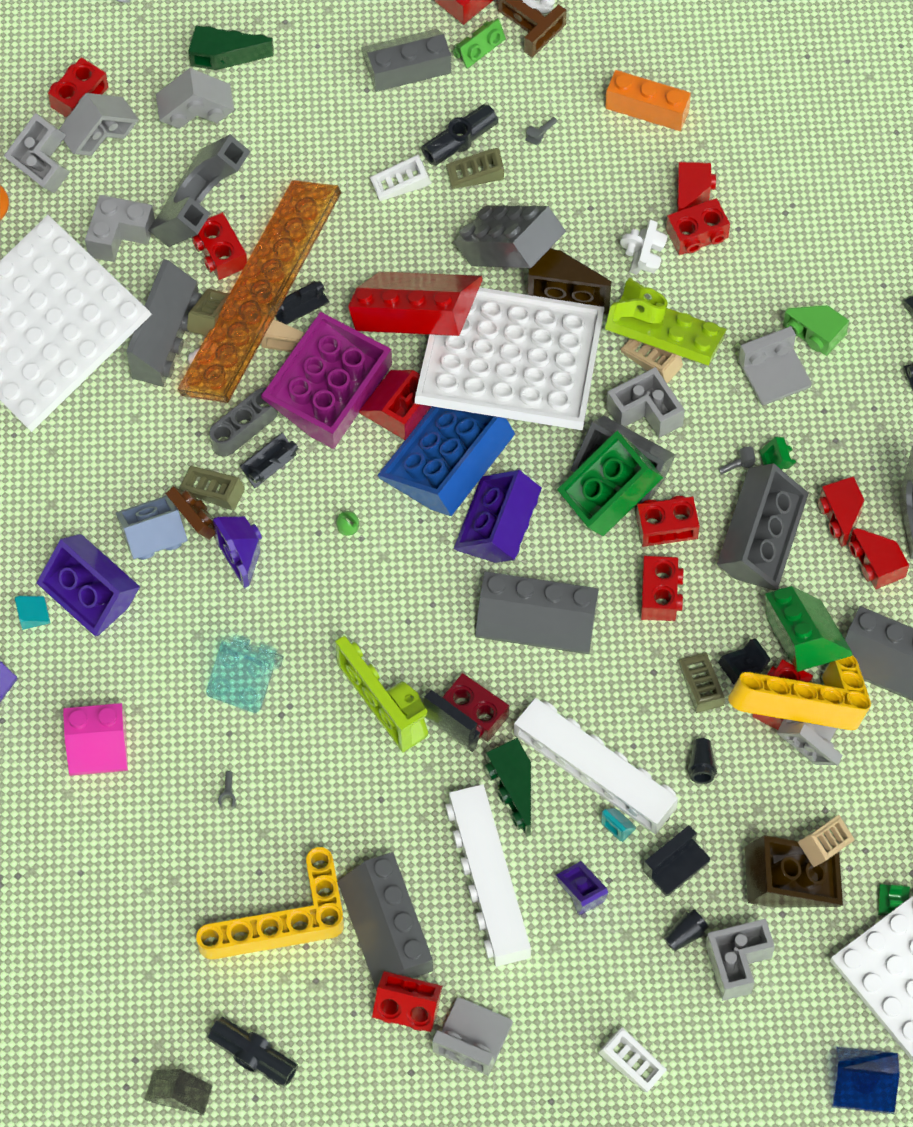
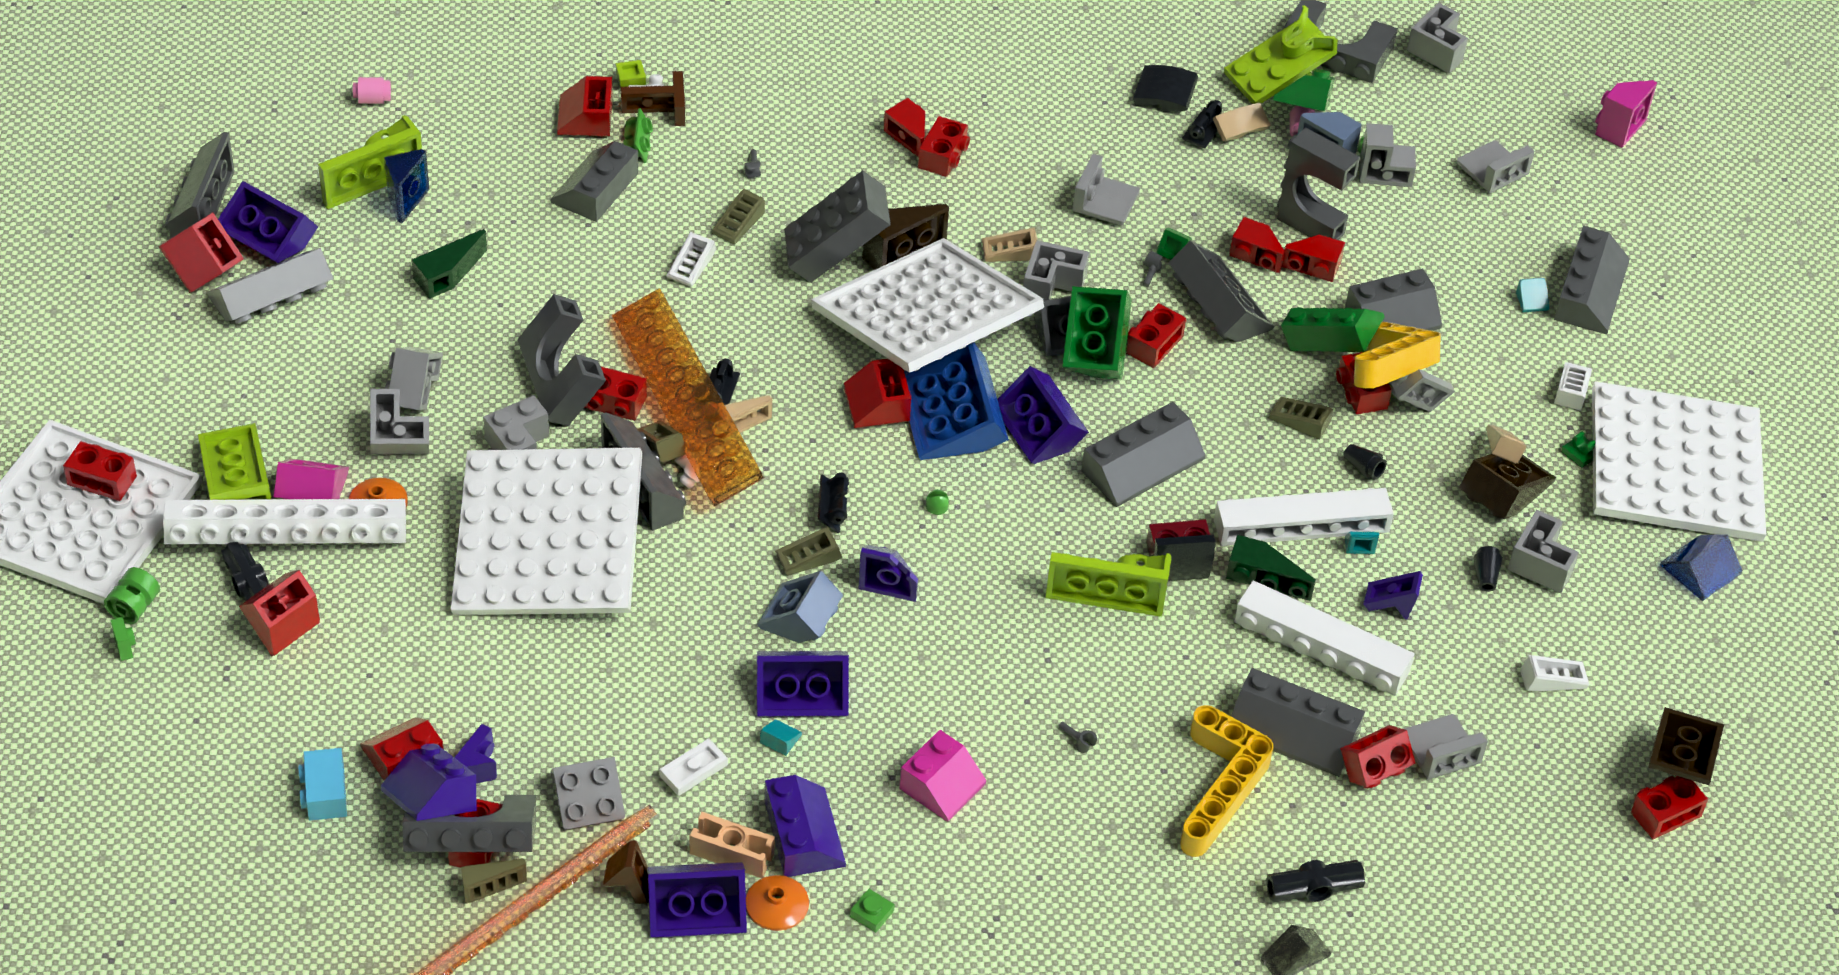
camera: 50 degrees left, 15 degrees down
(72, 86) = (363, 367): red brick -> none
(193, 96) = (469, 308): light grey brick -> none
(193, 510) = (841, 570): reddish brown plate -> none
(239, 433) = (781, 491): dark grey beam -> none
(243, 673) = (993, 650): clear light blue bracket -> none
(328, 379) = (815, 414): magenta slope -> none
(414, 303) = (818, 319): red slope -> none
(449, 142) = (701, 201): black piece -> none
(642, 245) = (922, 182): white hips -> none
(648, 100) = (809, 92): orange brick -> none
(658, 588) = (1204, 379): red brick -> none
(662, 327) = (990, 221): lime plate -> none
(676, 862) = (1426, 534): black panel -> none
(749, 659) = (1315, 379): black bracket -> none
(817, 326) = (1101, 142): bright green slope -> none

